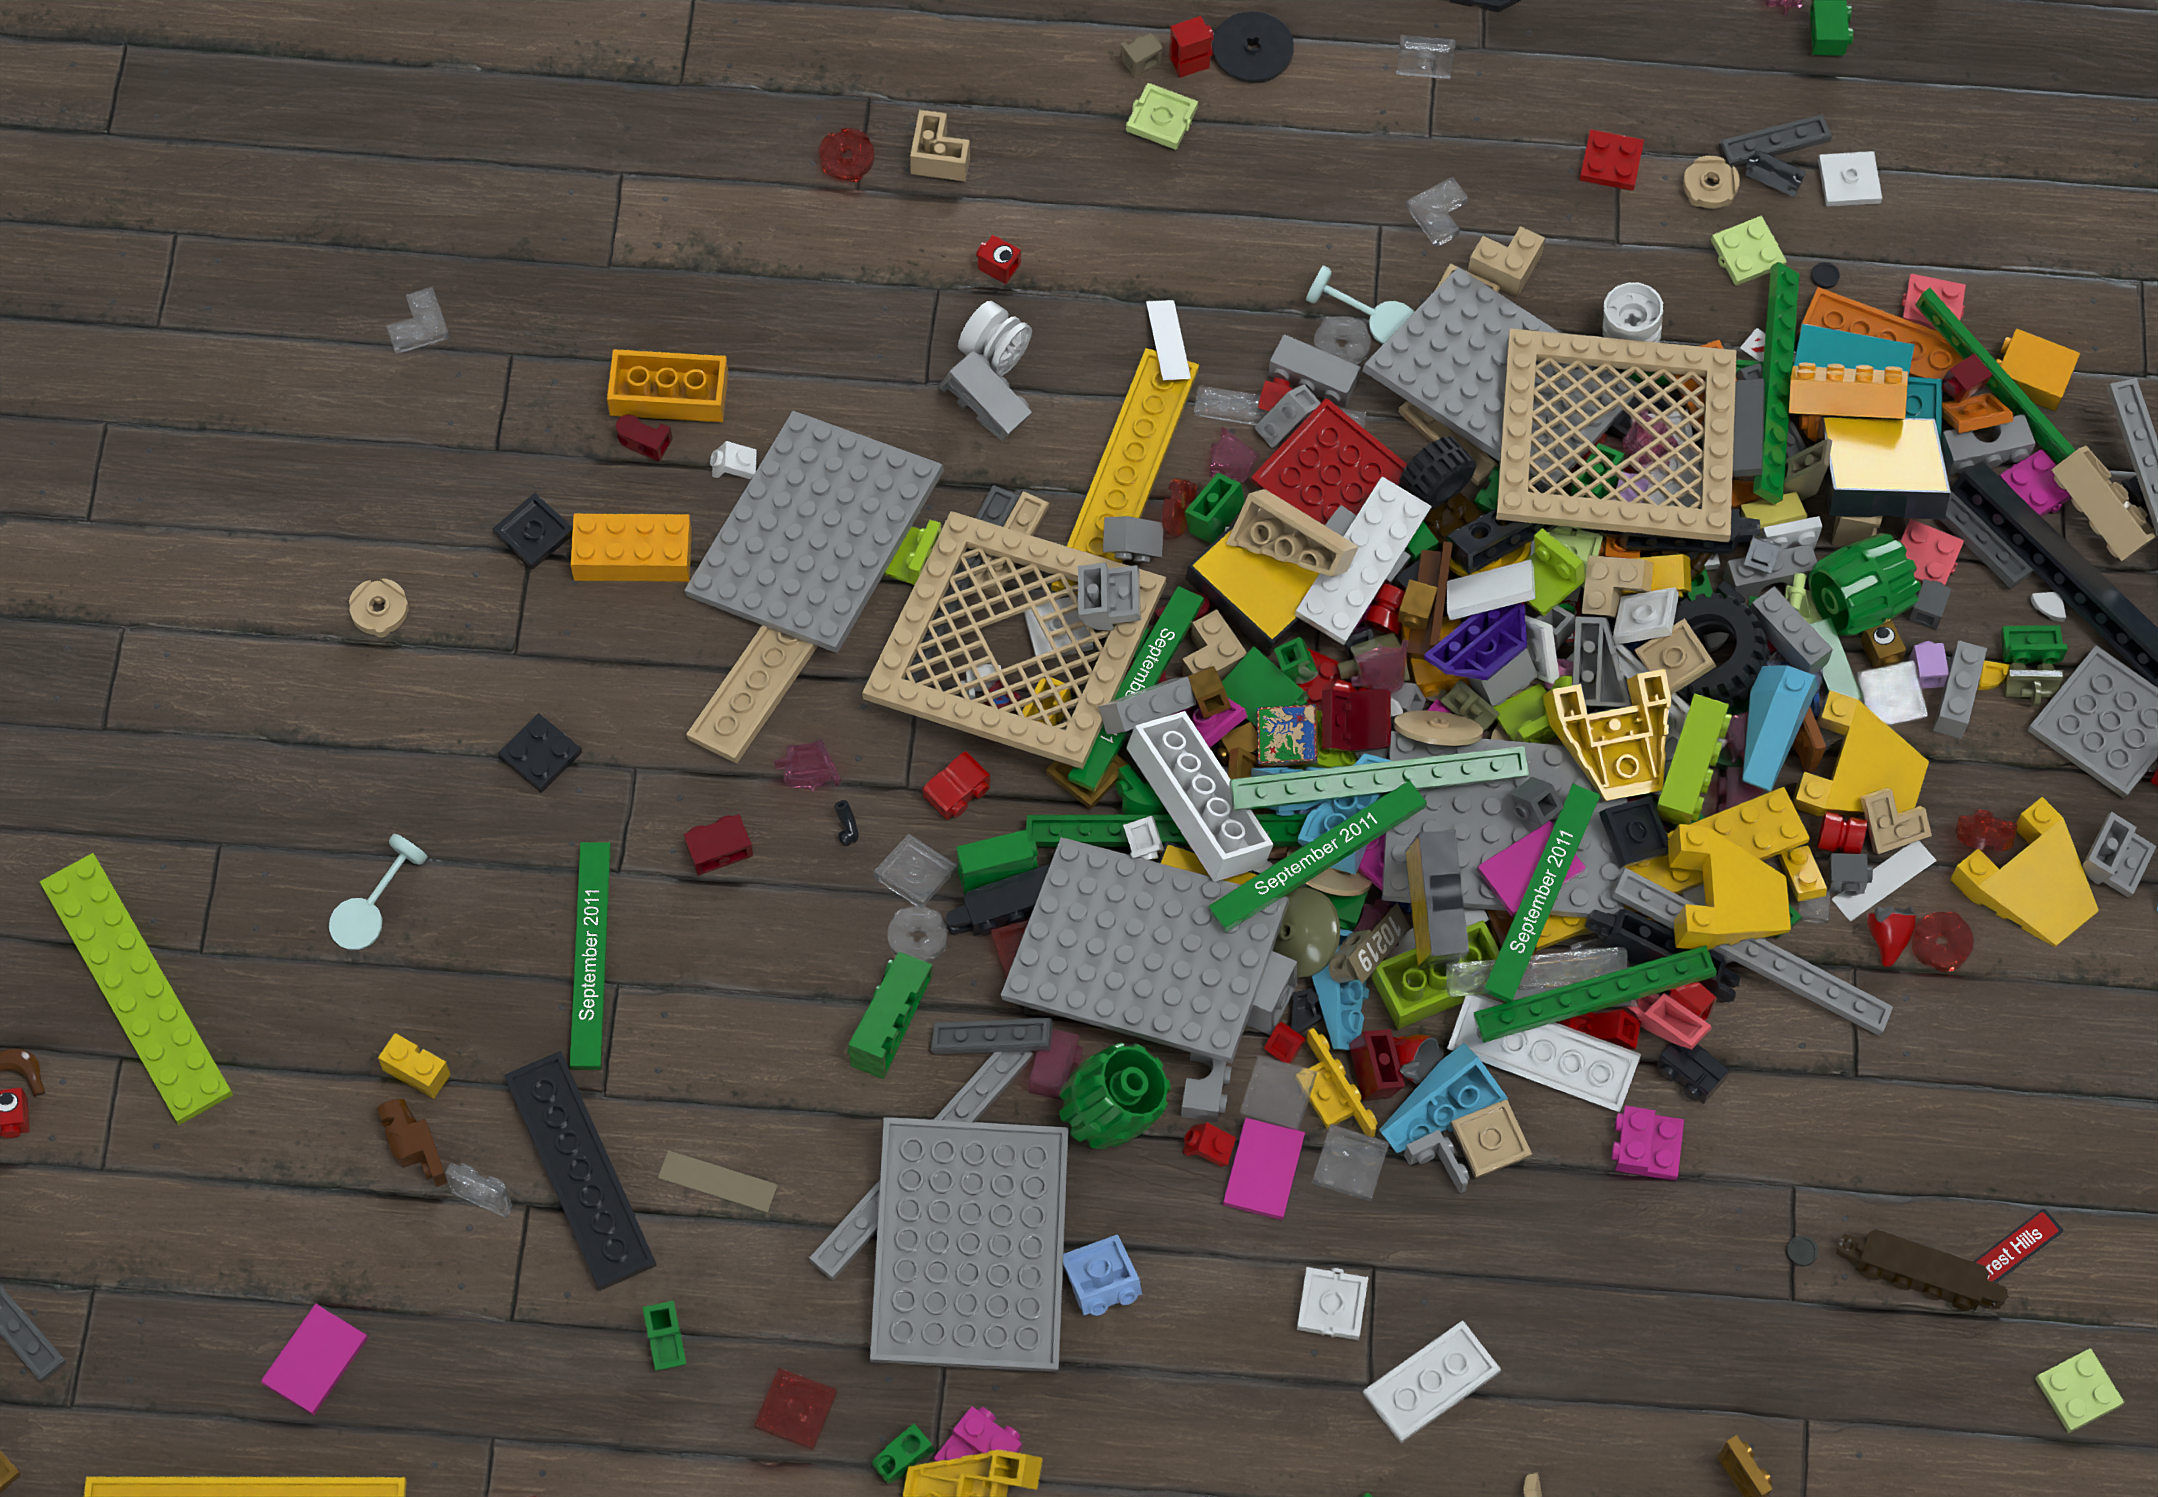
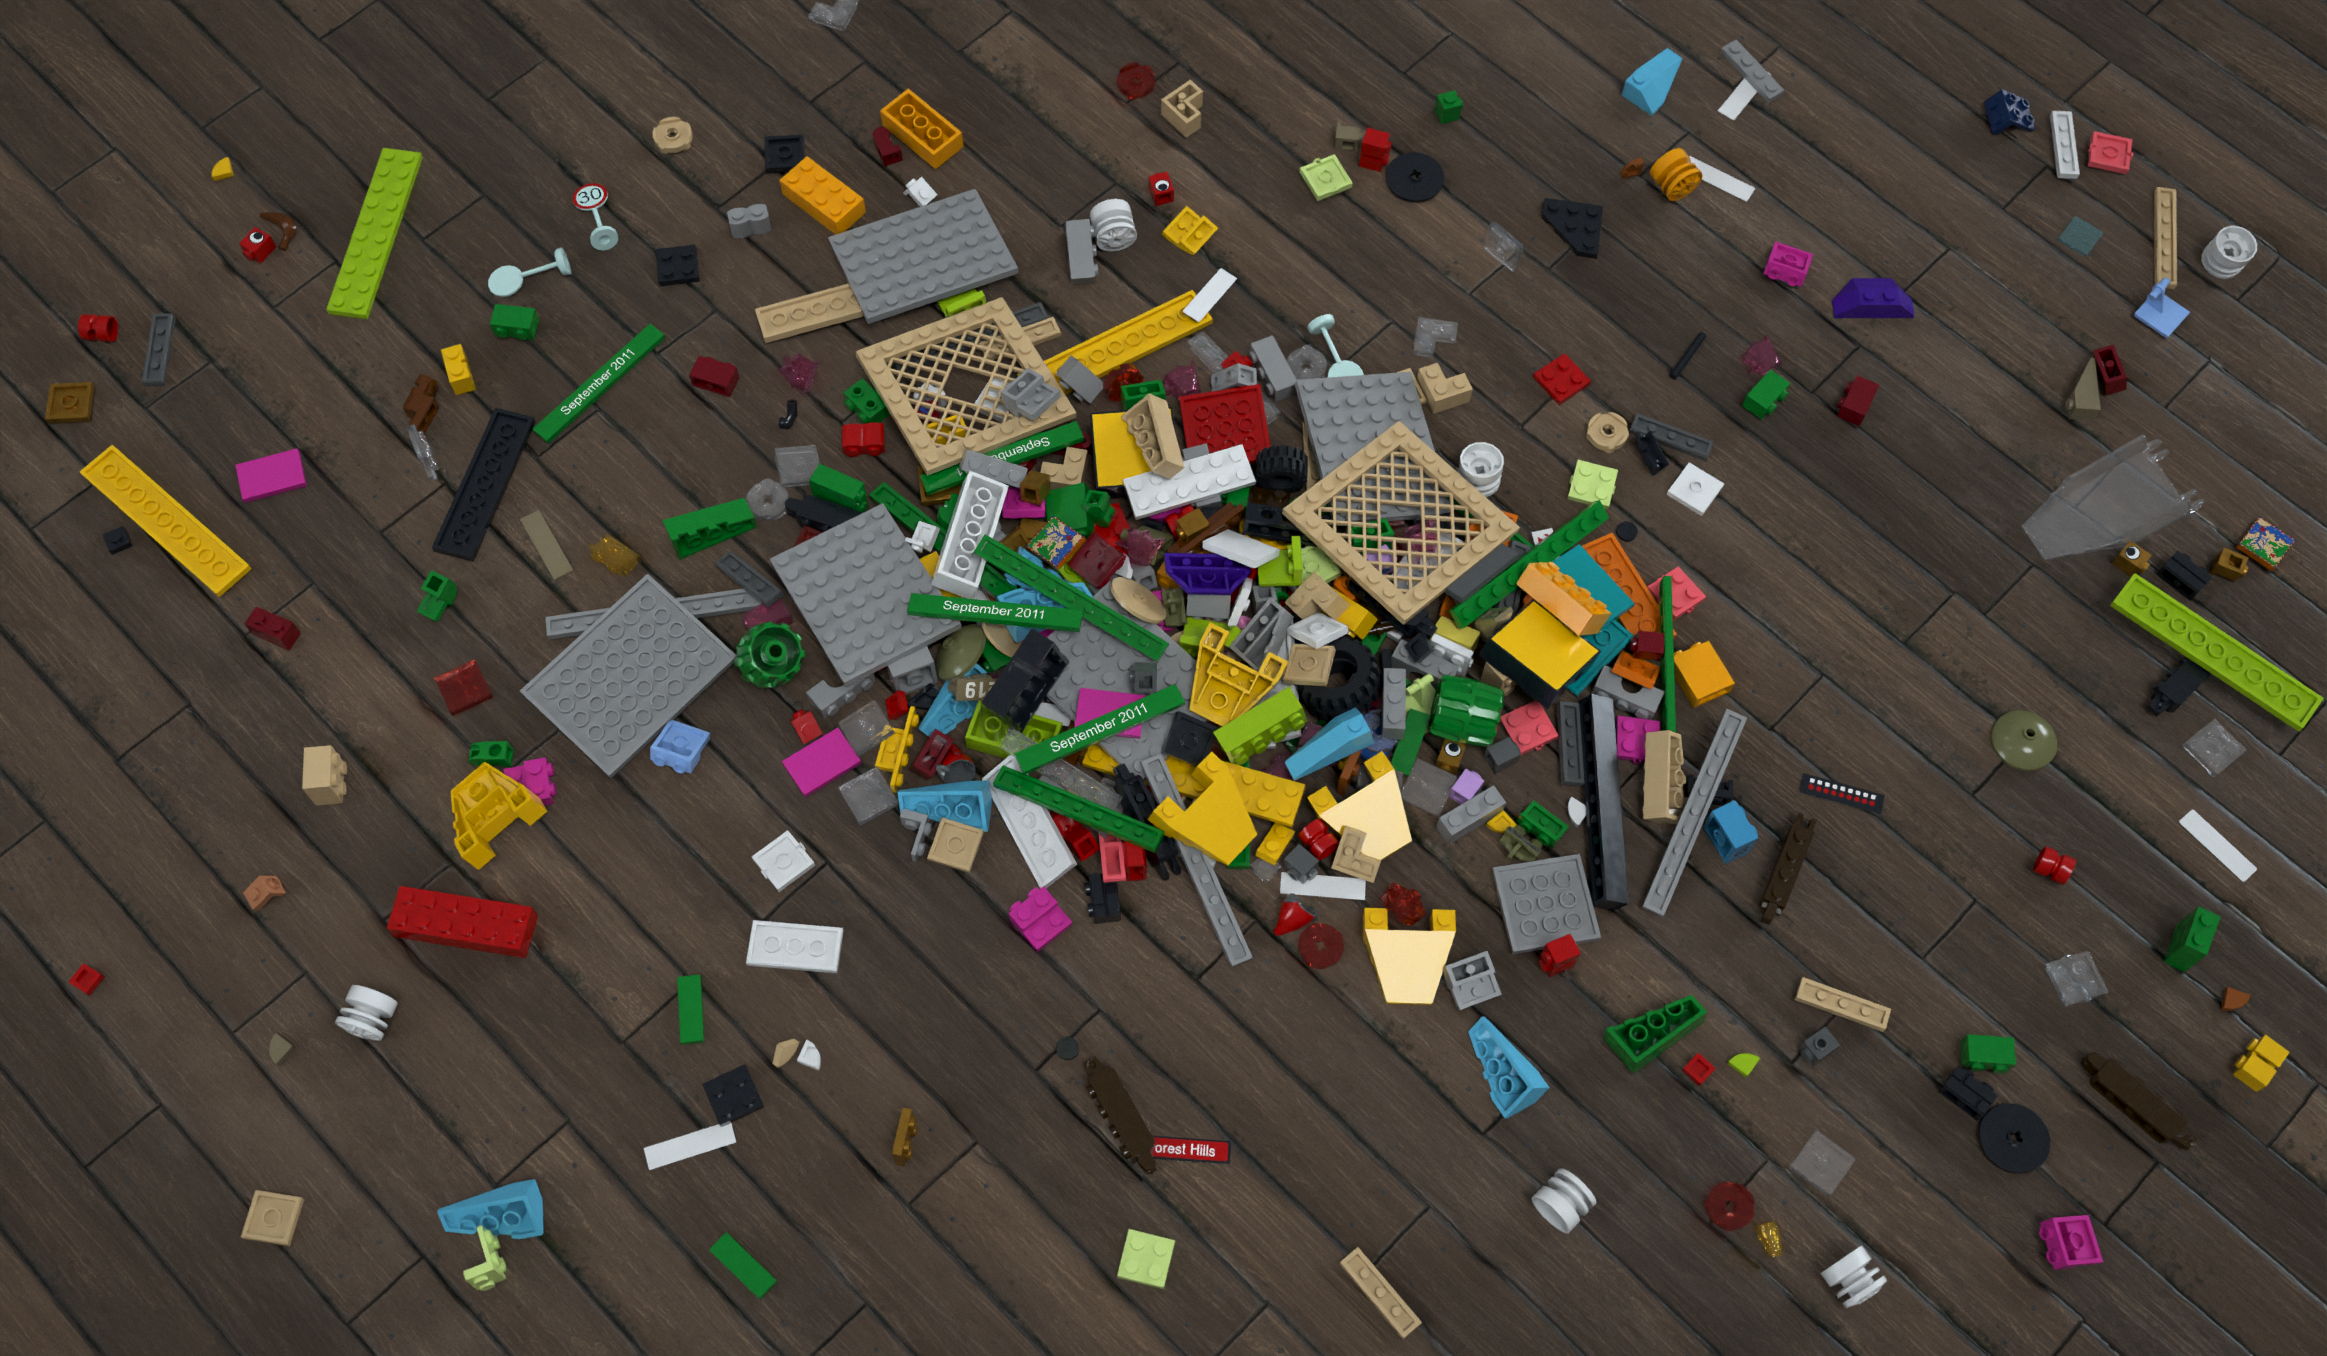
camera: 40 degrees right, 0 degrees up
(358, 750) = (590, 198): none -> light aqua piece
(424, 961) = (514, 322): none -> green brick
(572, 642) = (749, 221): none -> light grey brick
(810, 1130) = (615, 555): none -> clear yellow bracket
(919, 744) = (865, 403): none -> green brick
(1073, 285) = (1189, 231): none -> yellow slope
(1560, 1478) = (810, 1056): none -> white tile
(1710, 39) = (1688, 355): none -> black bar

